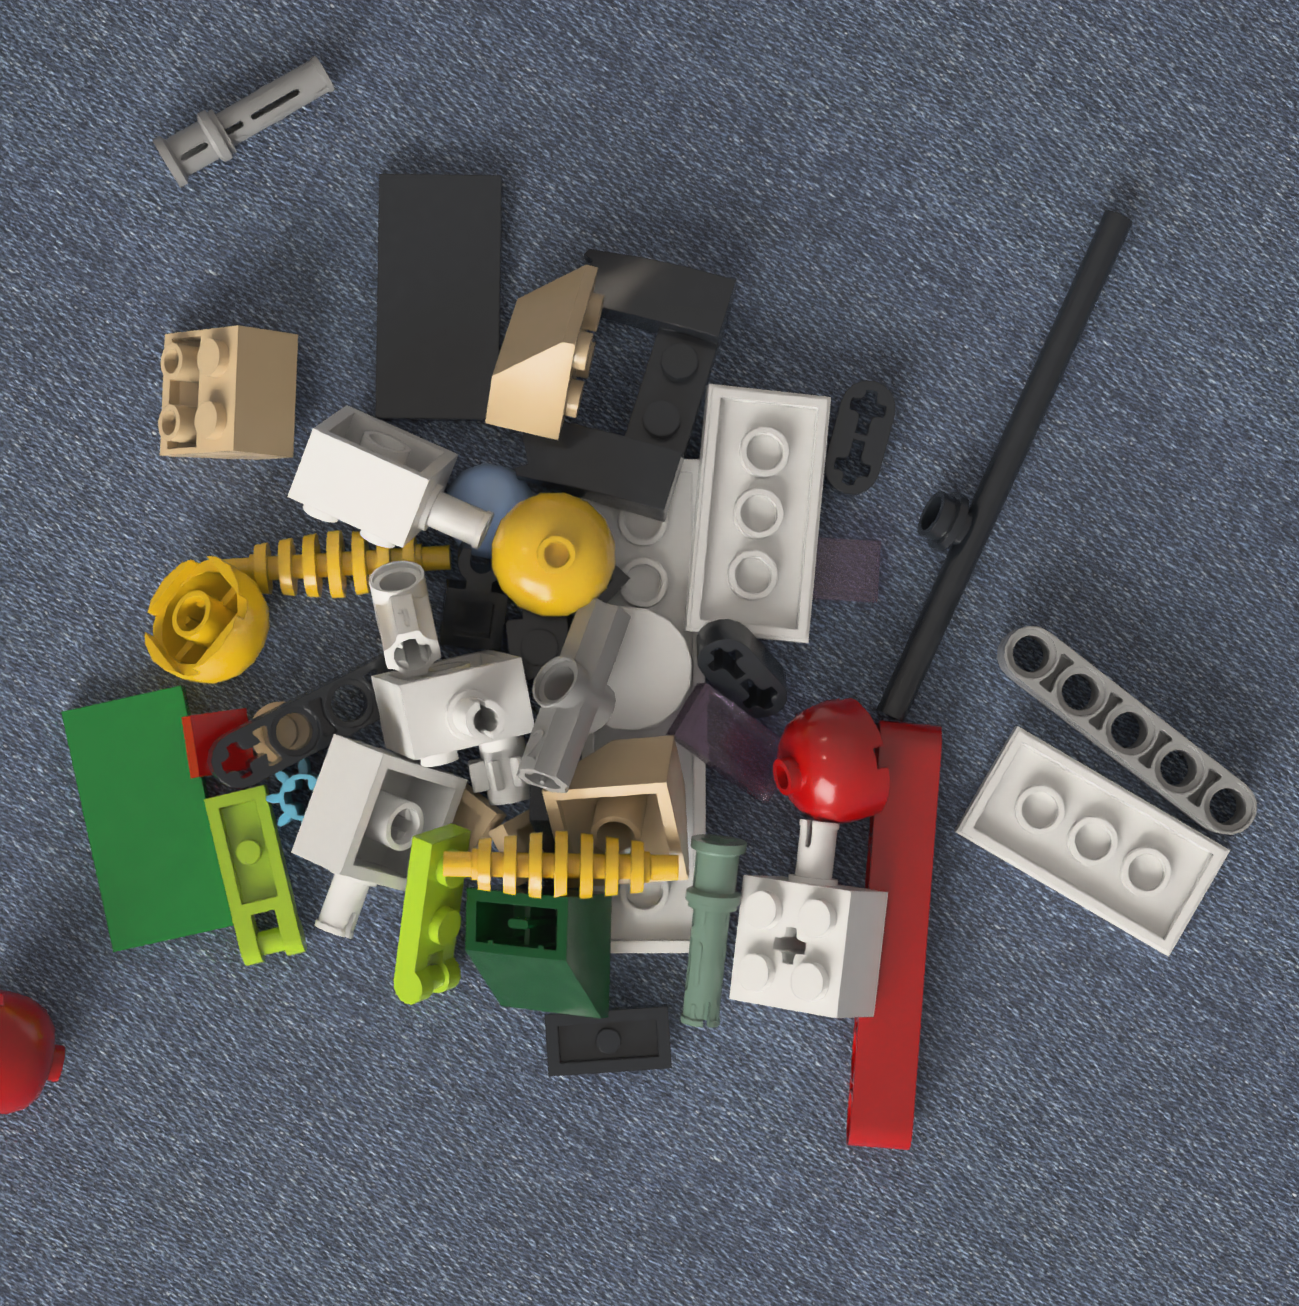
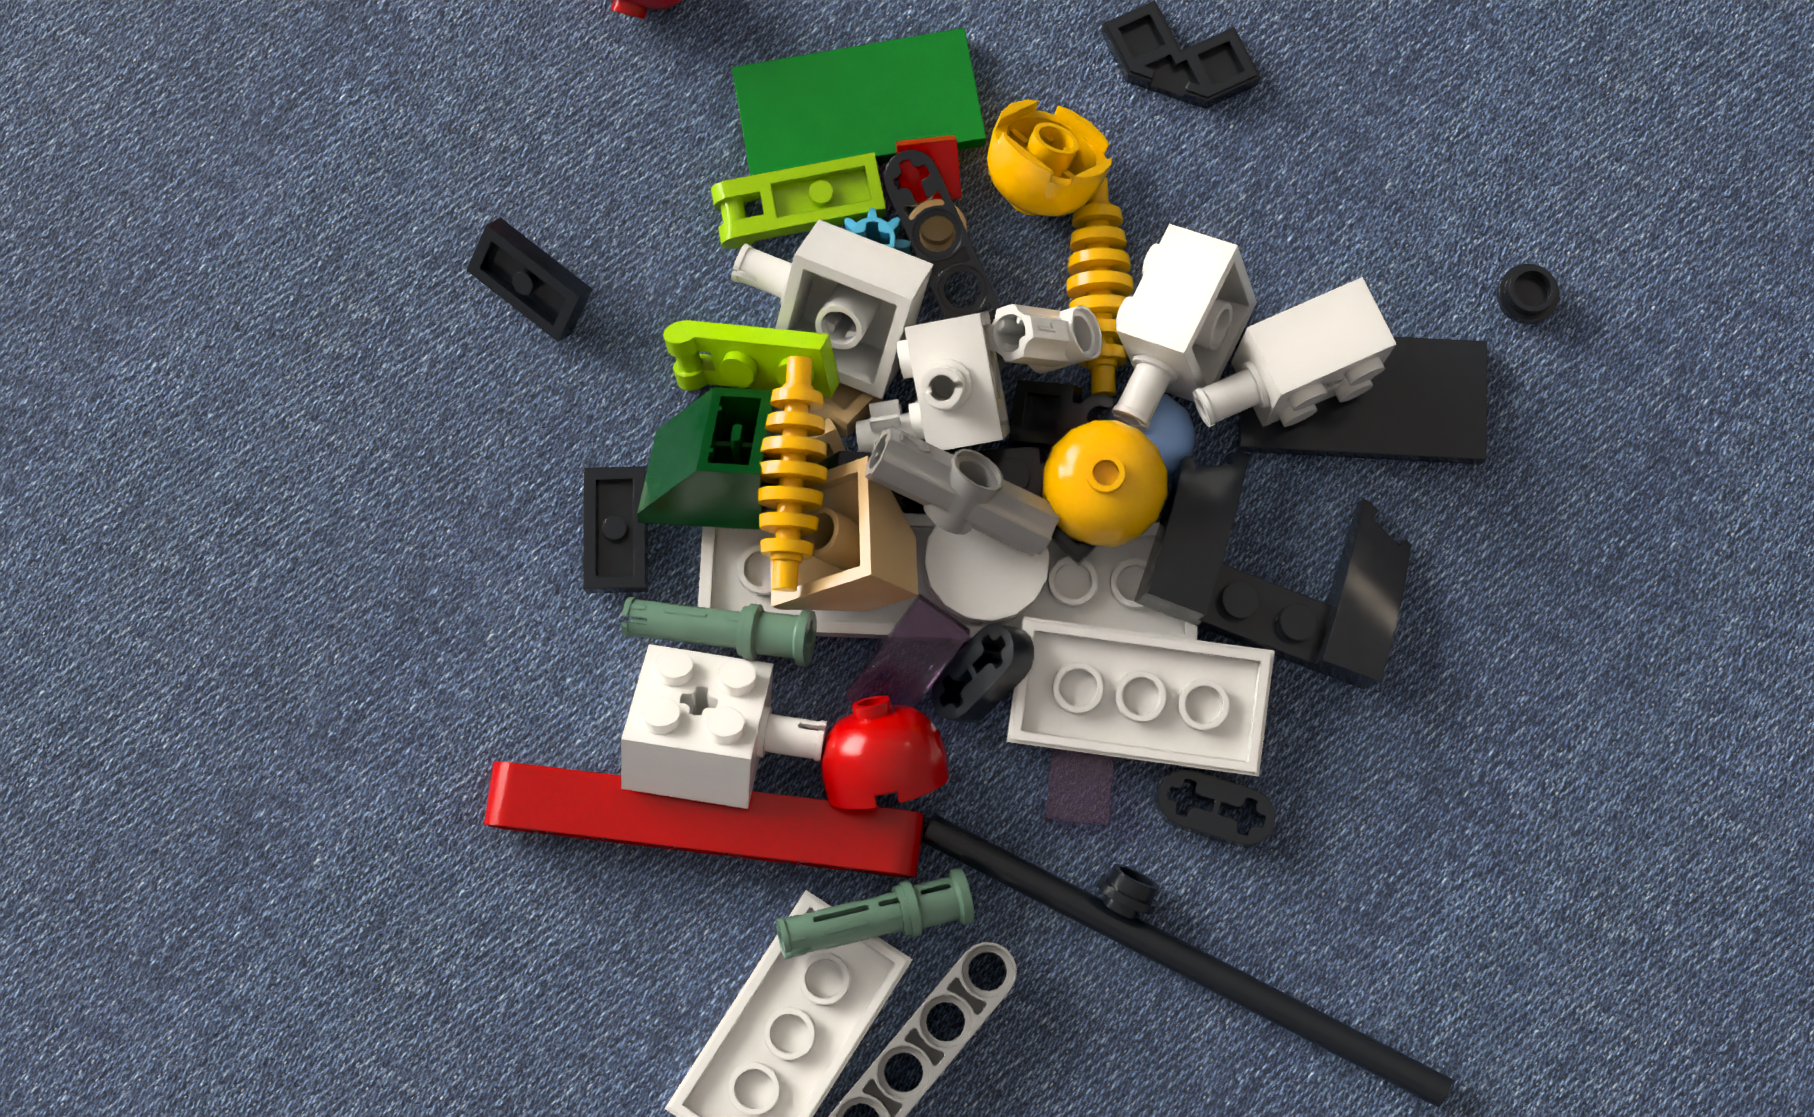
camera: 90 degrees right, 10 degrees down
(87, 514) = (1194, 75): none -> black tile
(209, 132) = (1579, 278): light grey pin -> none
(228, 393) = (1270, 190): tan slope -> none
(326, 132) = (1528, 294): none -> black plate
(352, 1146) = (529, 279): none -> black plate
(417, 362) = (1303, 358): none -> white brick
(545, 354) = (1303, 486): tan slope -> none
(973, 734) = (904, 911): none -> sand green pin

